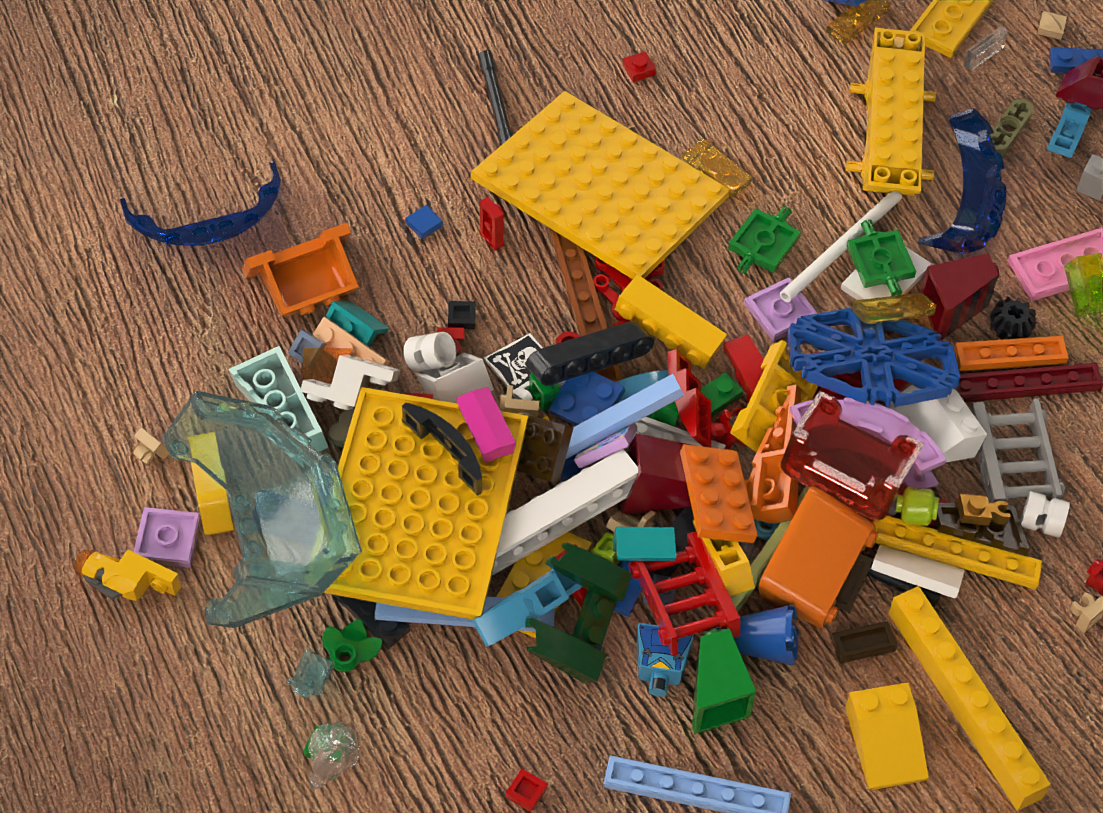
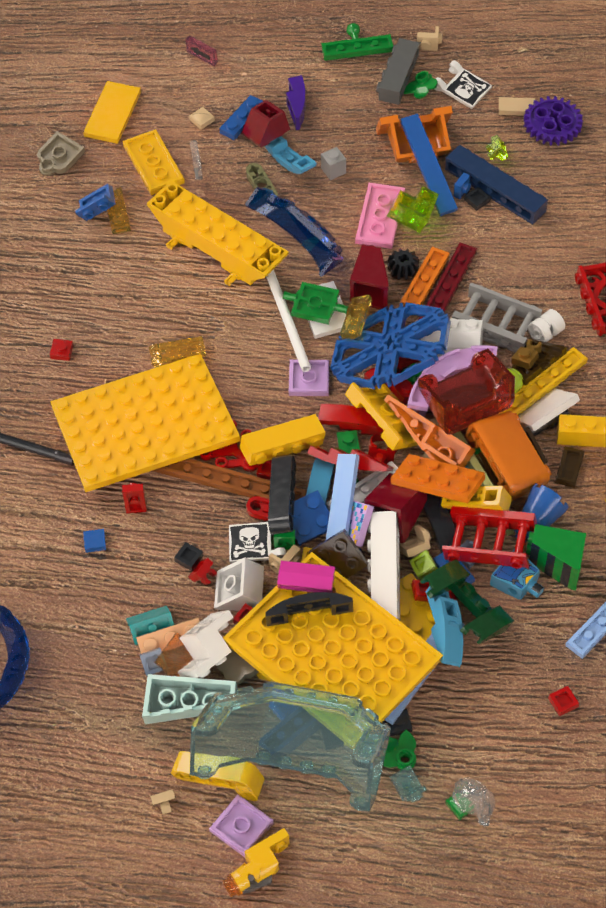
camera: 55 degrees left, 0 degrees up
(306, 273) = (89, 630): orange windscreen -> none
(429, 351) = (212, 585): white wheel -> none
(644, 543) = (443, 539): teal panel -> none
(764, 240) = (253, 356): green plate -> none

